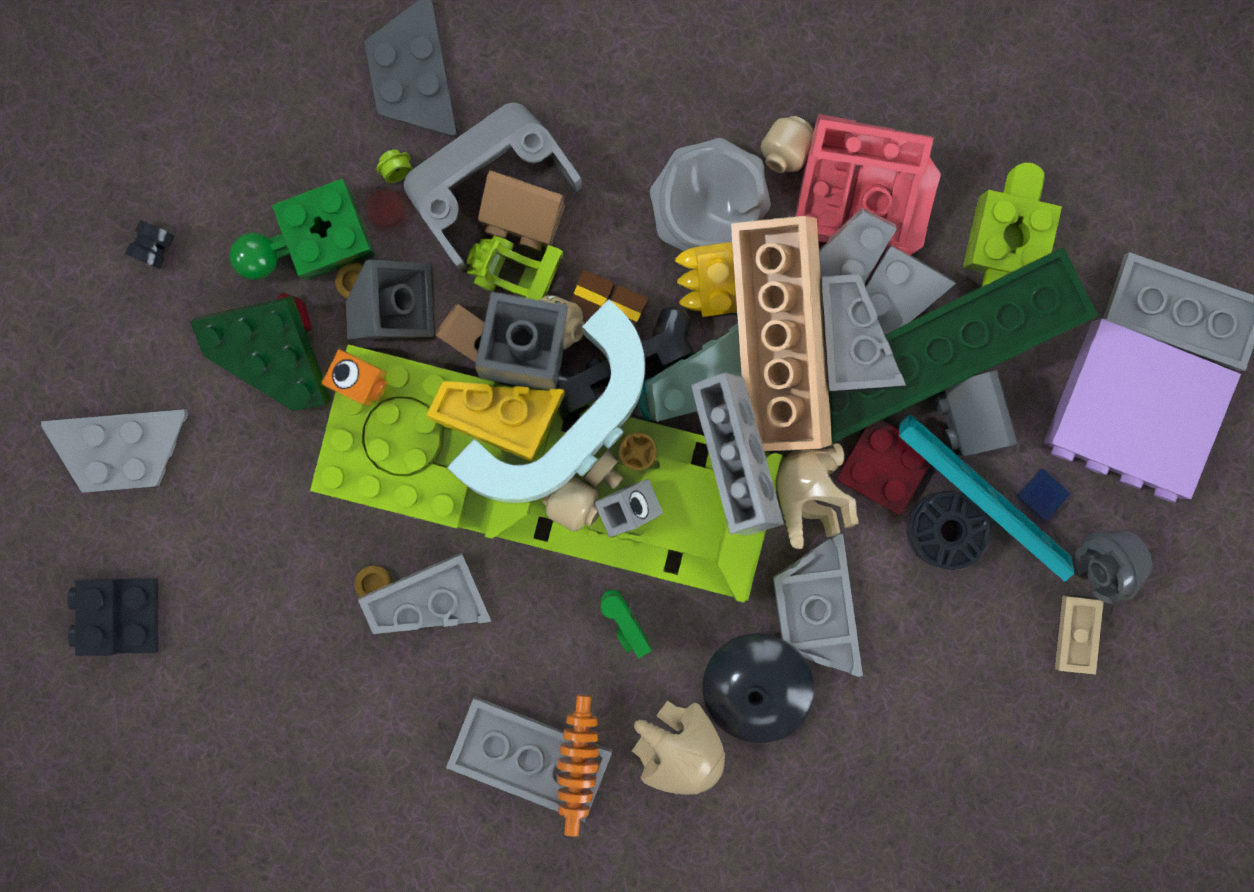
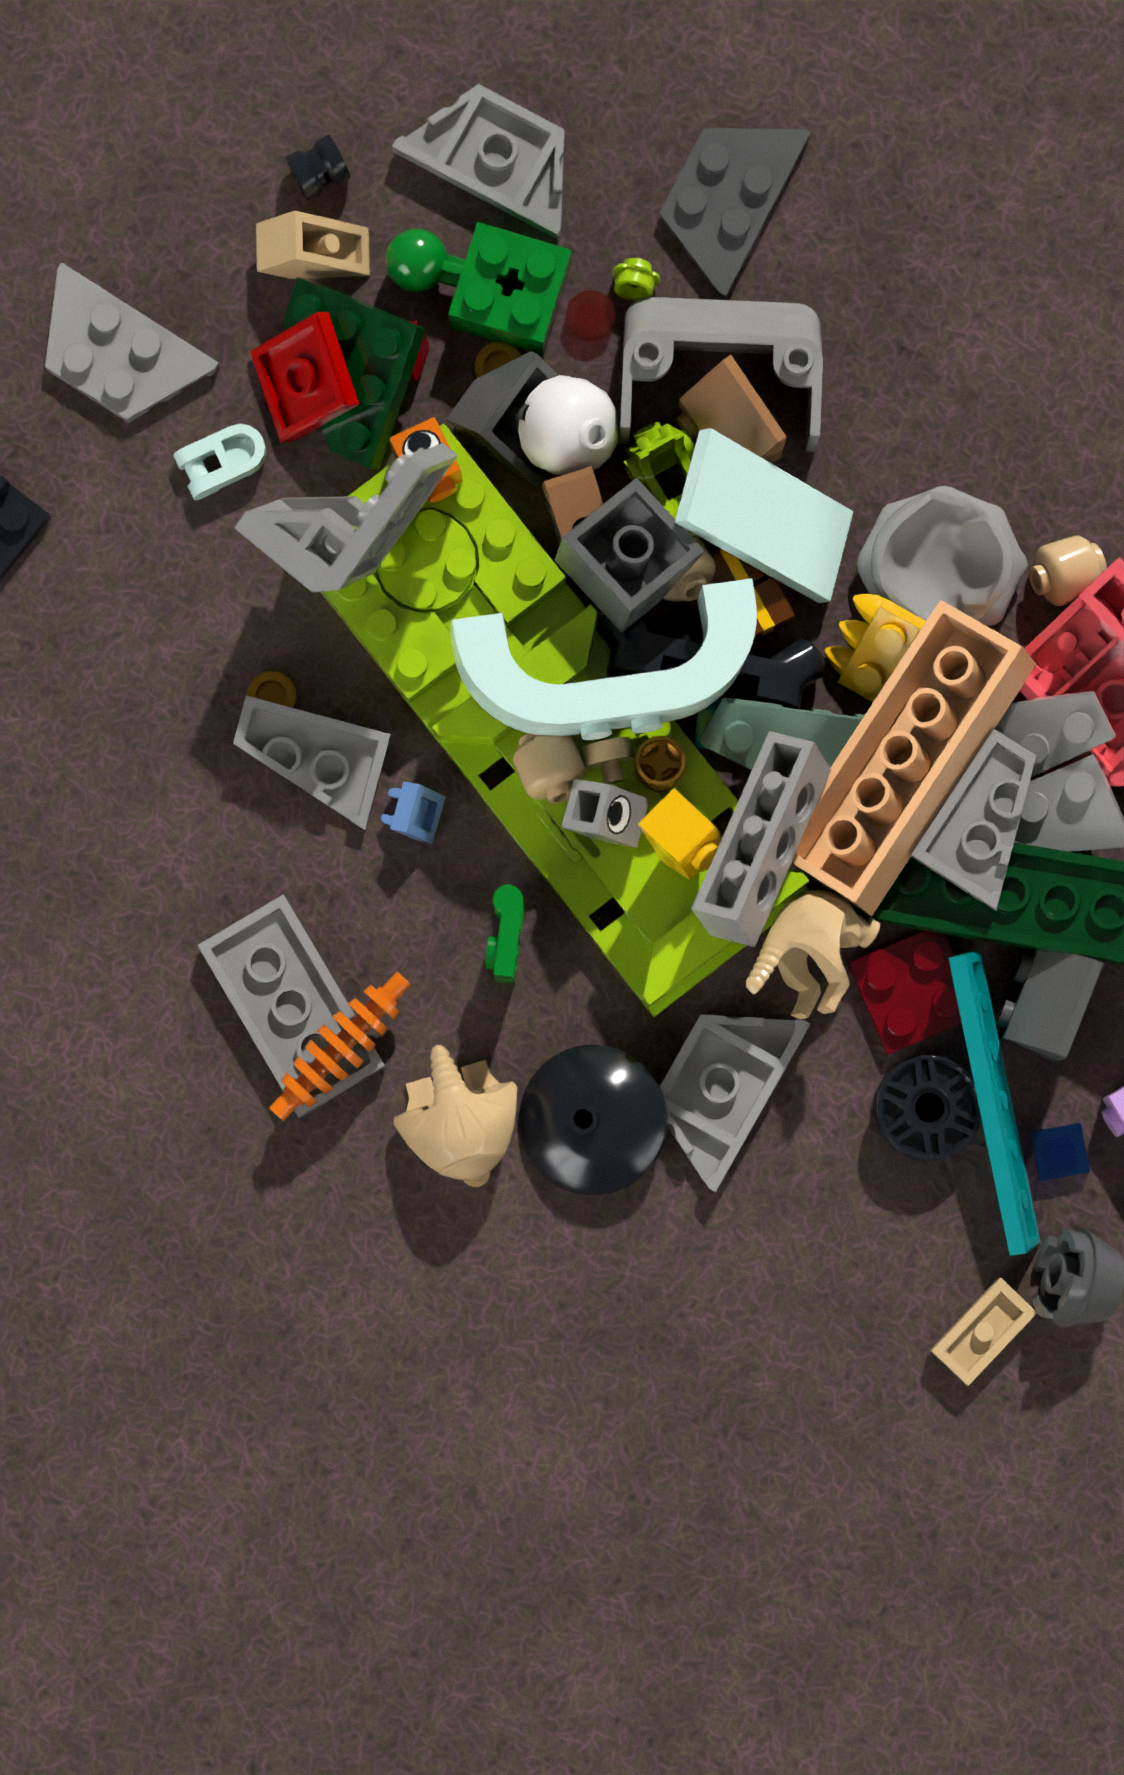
camera: 45 degrees right, 5 degrees down
(184, 296) = (311, 247): none -> tan slope
(237, 453) = (239, 451): none -> light aqua plate
(242, 379) = (304, 377): none -> red tile
(251, 154) = (495, 155): none -> light grey wing
(318, 480) = (315, 534): none -> light grey bracket
(424, 287) = (568, 426): none -> white cylinder
(499, 416) = (544, 613): yellow wing -> none
(513, 588) = (416, 811): none -> medium blue tile
(583, 253) = (764, 516): none -> light aqua tile
(688, 489) = (681, 835): none -> yellow slope

